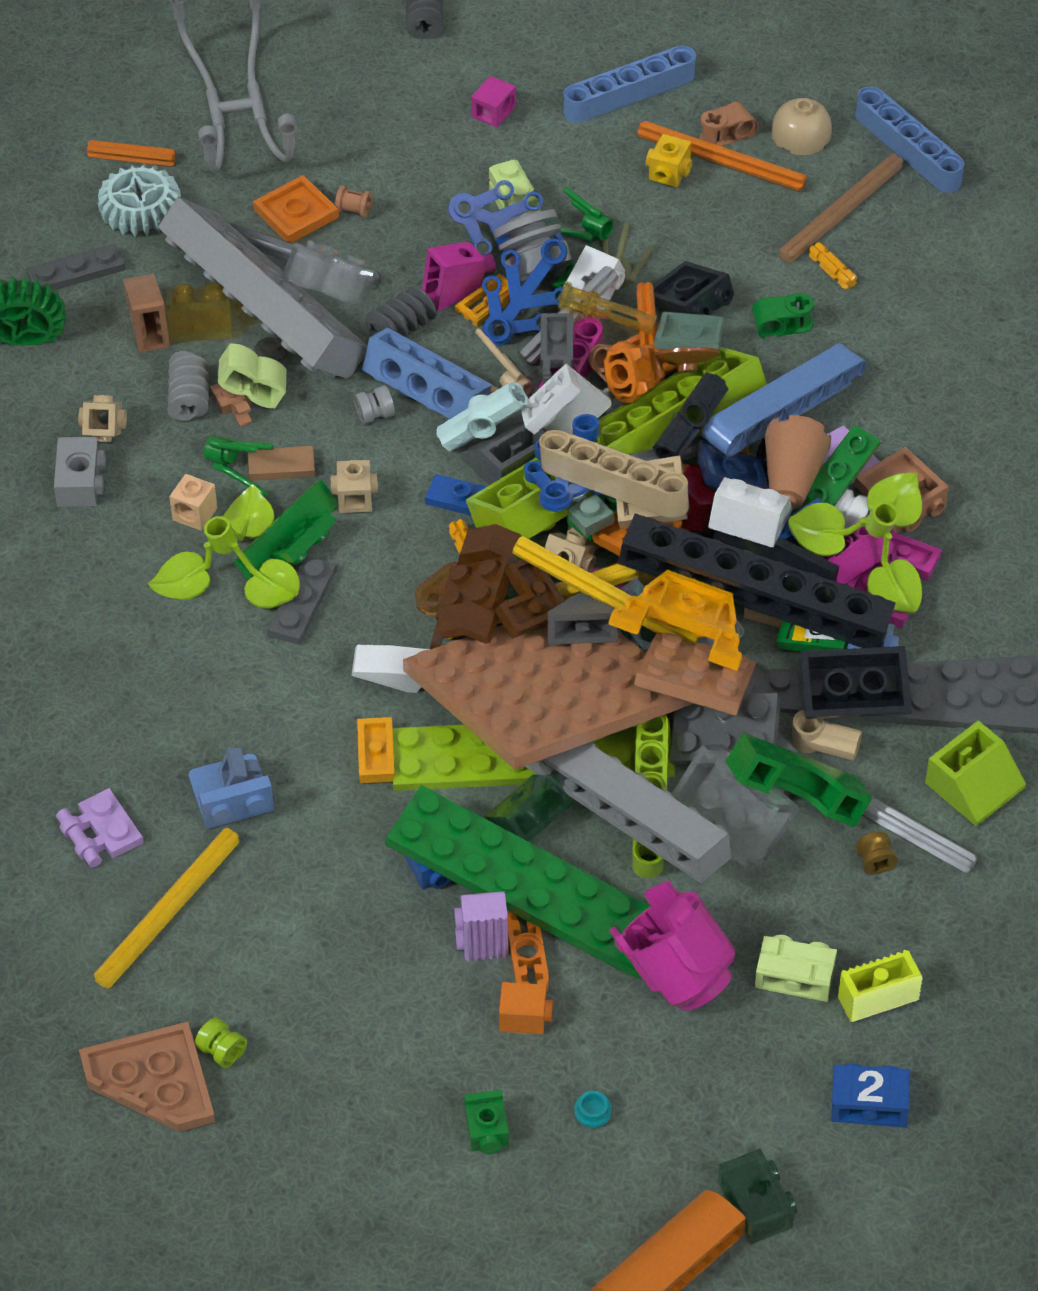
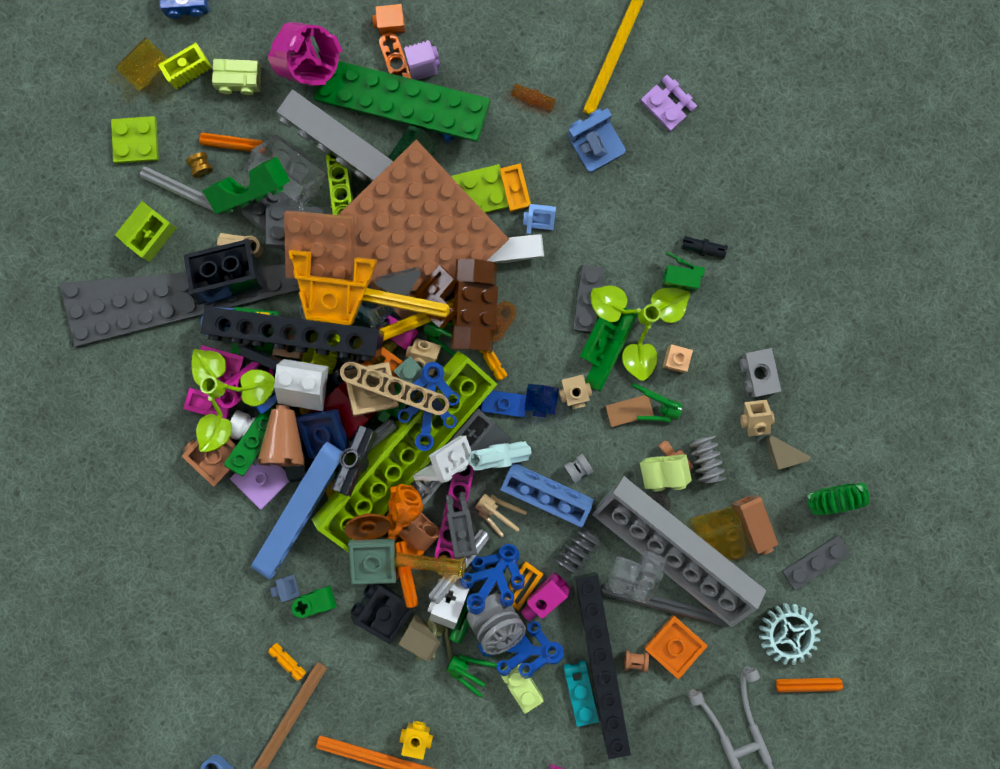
camera: 170 degrees right, 35 degrees up
(73, 376) = (782, 454): none -> dark tan slope
(107, 634) = (704, 247): none -> black pin
(154, 594) = (682, 277): none -> green piece
(313, 868) = (533, 97): none -> clear orange pin
(344, 705) = (539, 217): none -> light blue bracket
(400, 200) = (602, 665): none -> black brick
(405, 483) = (541, 400): none -> clear blue brick
(436, 182) = (581, 694): none -> teal plate
(644, 251) = (419, 639): none -> dark tan slope
(820, 334) = (285, 588): none -> sand blue tile
(820, 882) = (228, 142): none -> orange axle
(951, 1005) = (141, 64): none -> clear yellow bracket
(980, 911) = (134, 139): none -> lime plate

